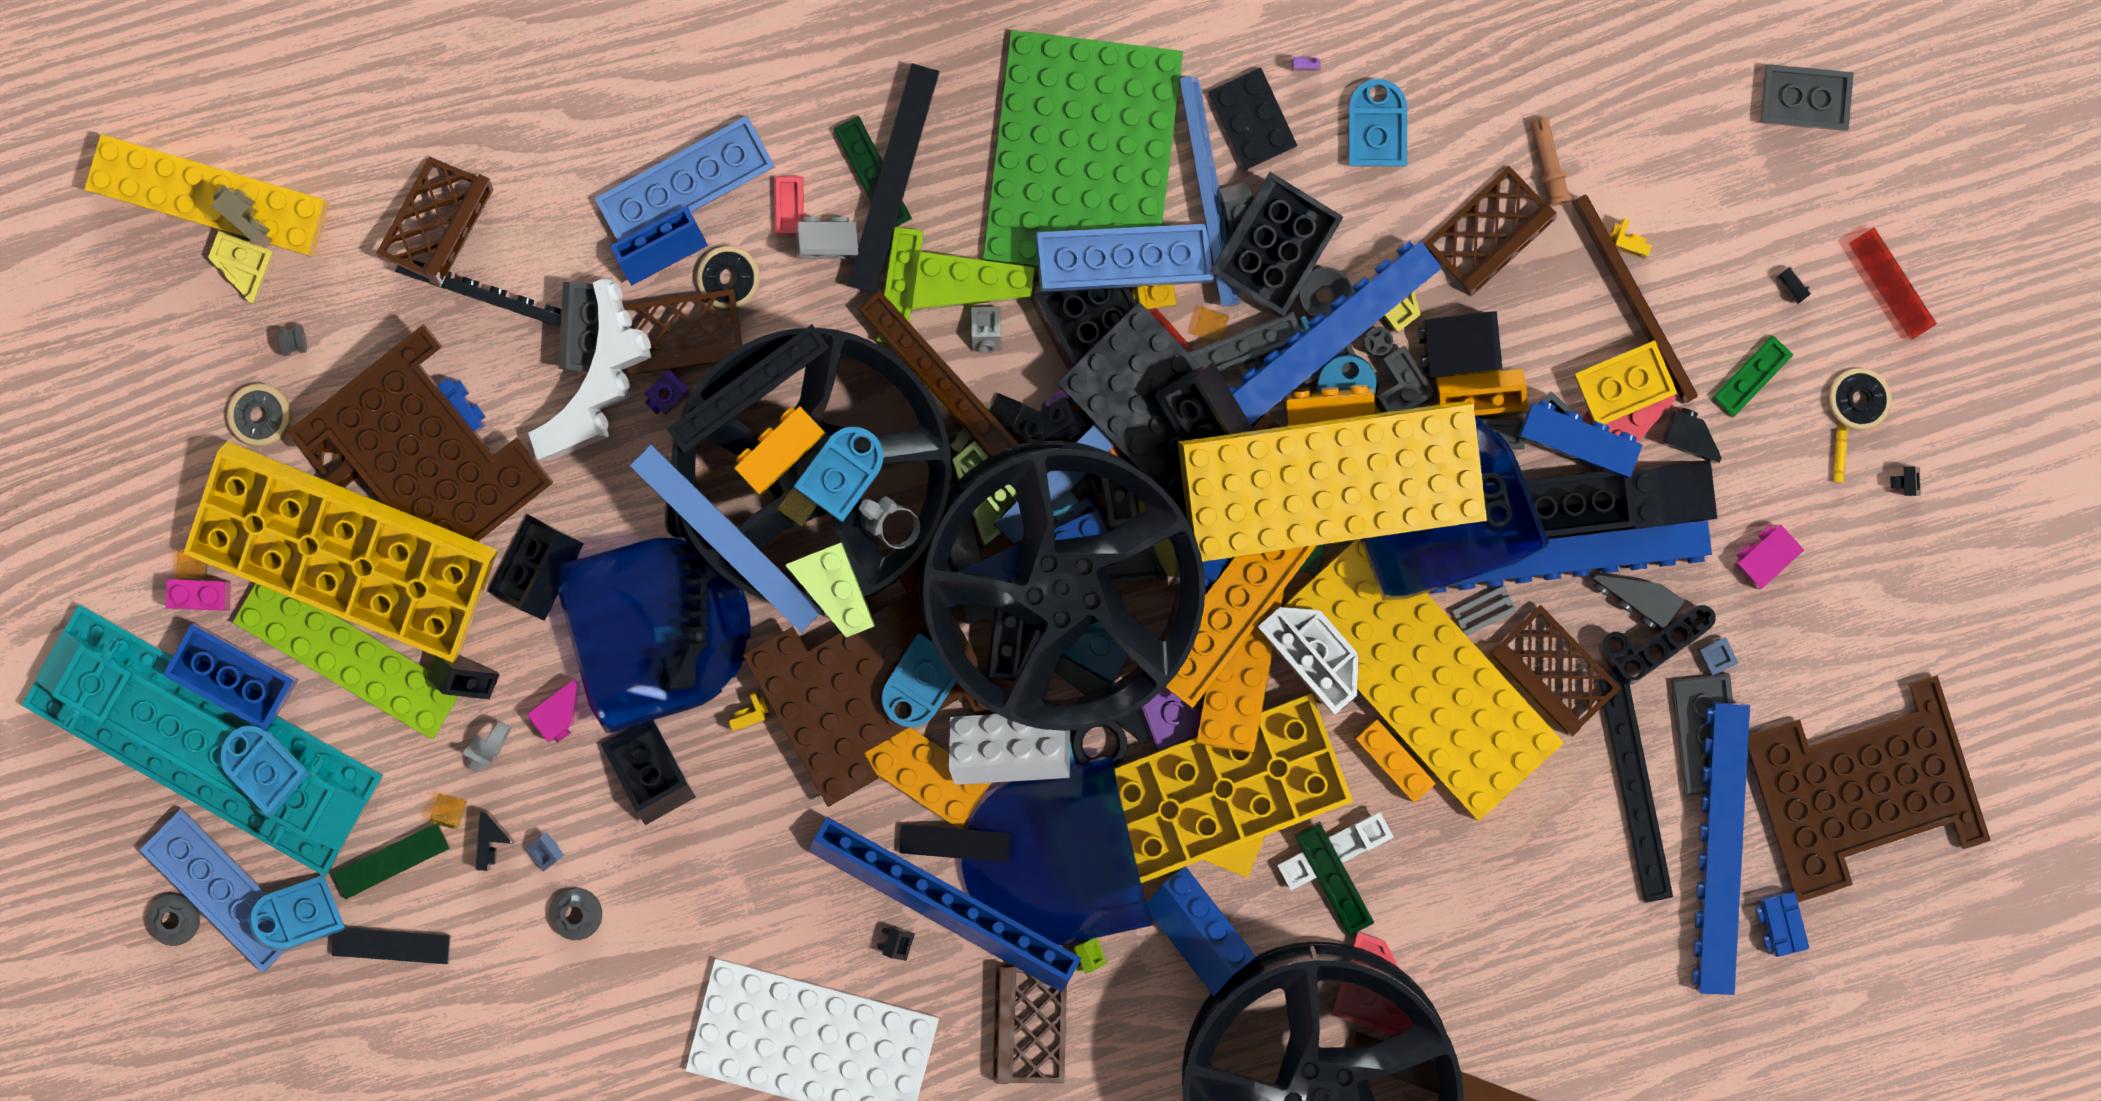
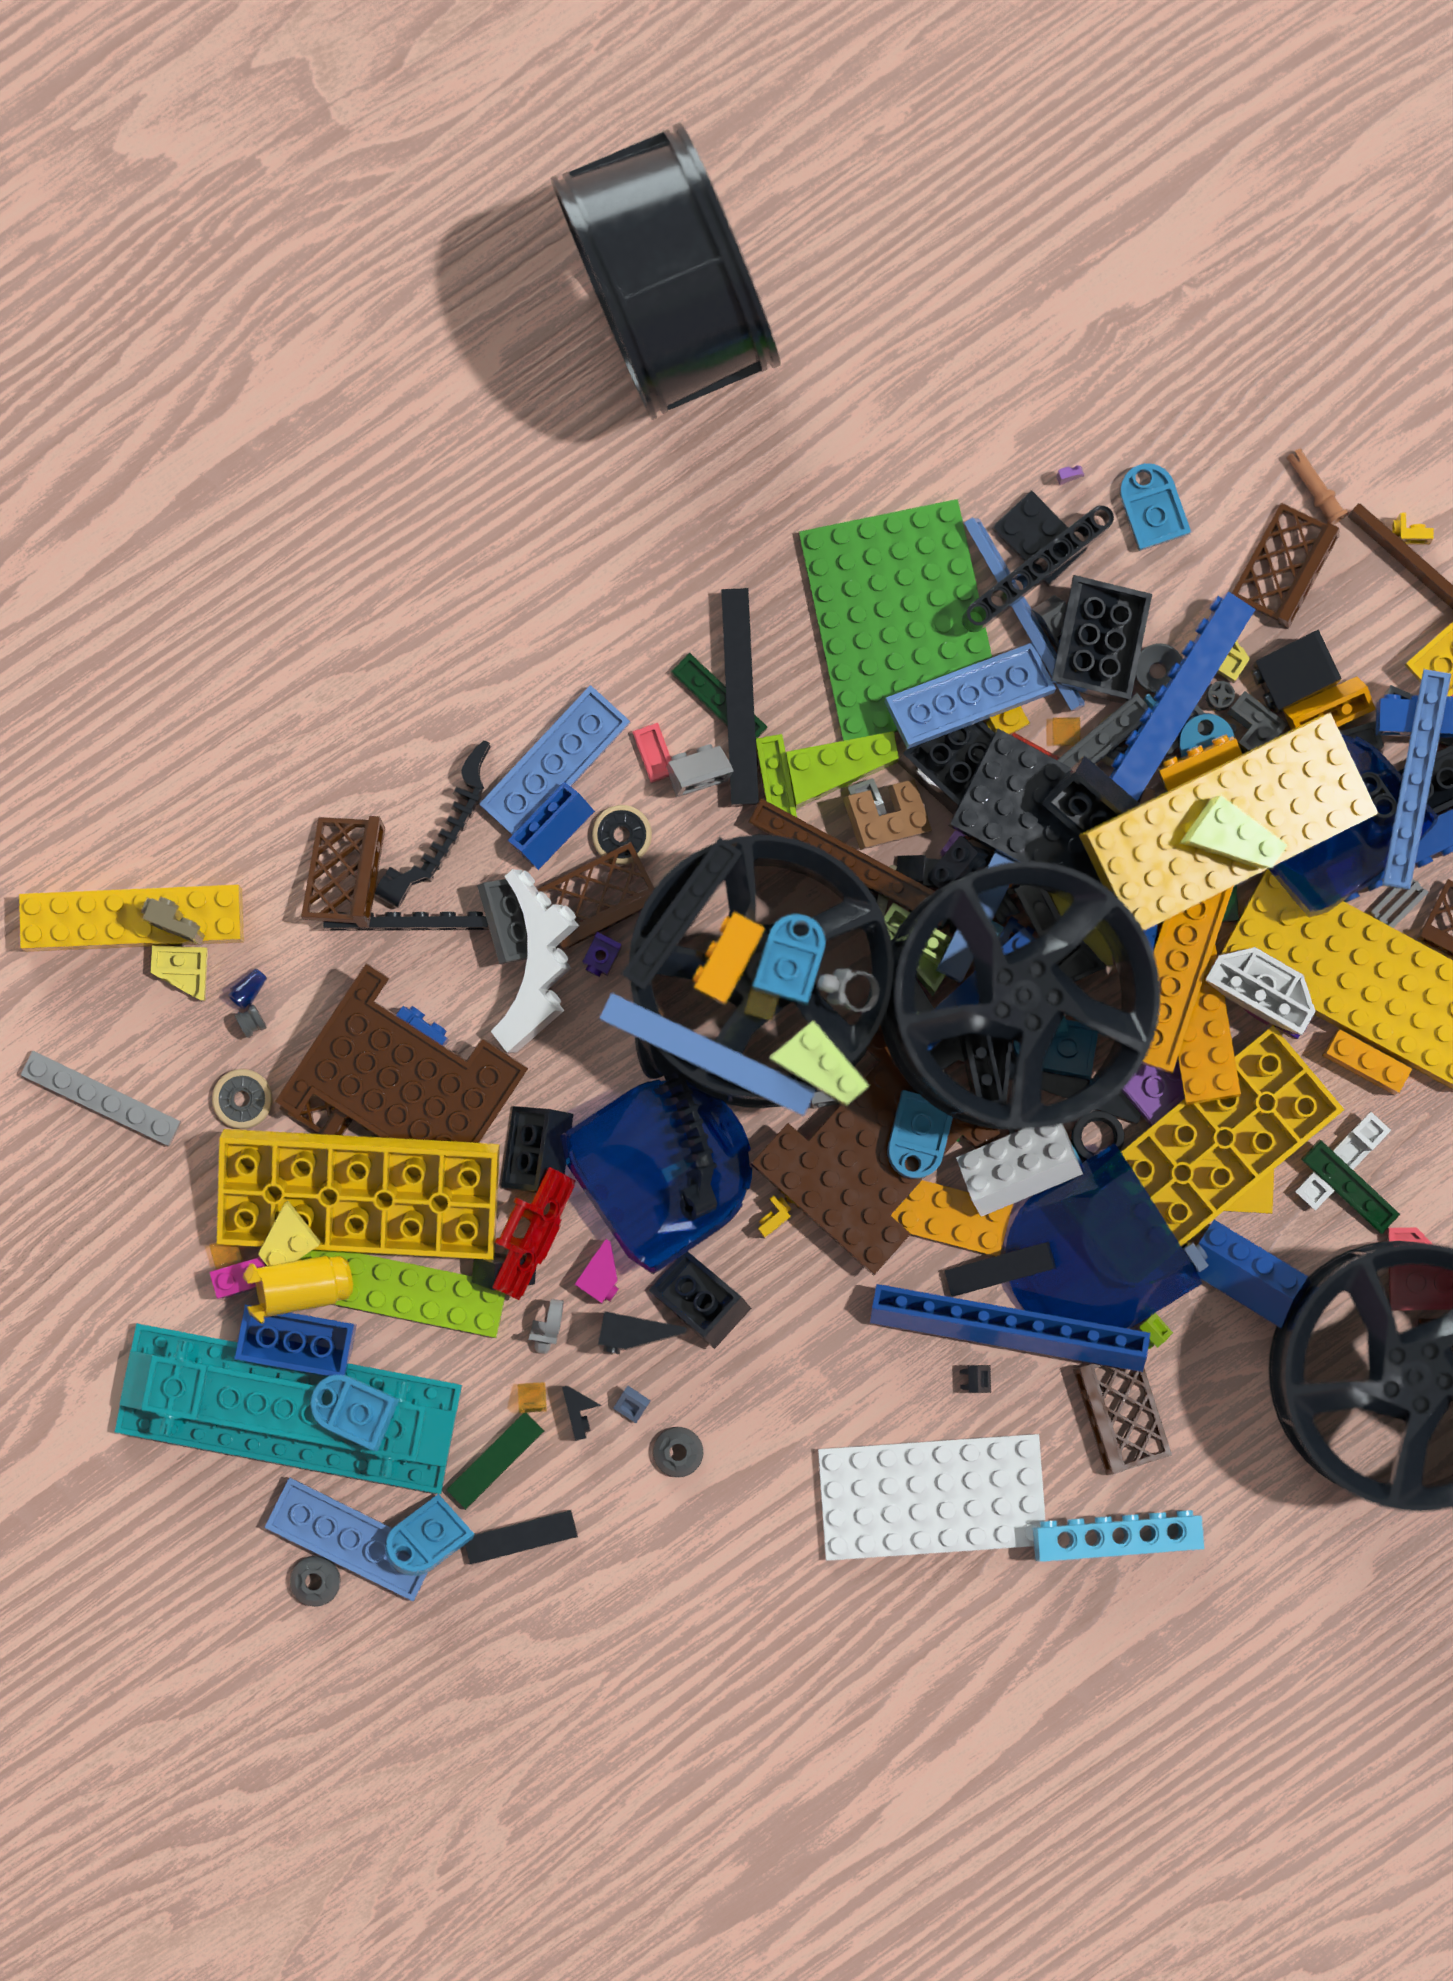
camera: 20 degrees left, 5 degrees down
(117, 366) = (101, 1098): none -> light grey plate
(250, 624) = (299, 1285): none -> yellow piece
(254, 575) = (288, 1238): none -> light yellow wing
(300, 306) = (247, 989): none -> clear blue cone
(484, 252) = (396, 885): none -> black piece
(507, 656) = (539, 1237): none -> red piece
(564, 780) = (631, 1332): none -> black slope
(981, 361) = (875, 830): none -> medium nougat plate
(1154, 897) = (1196, 1256): none -> sand blue plate
(1250, 148) = (1047, 559): none -> black beam
(1330, 496) = (1234, 834): none -> yellowish green wedge
(1540, 497) = (1416, 779): none -> medium blue tile

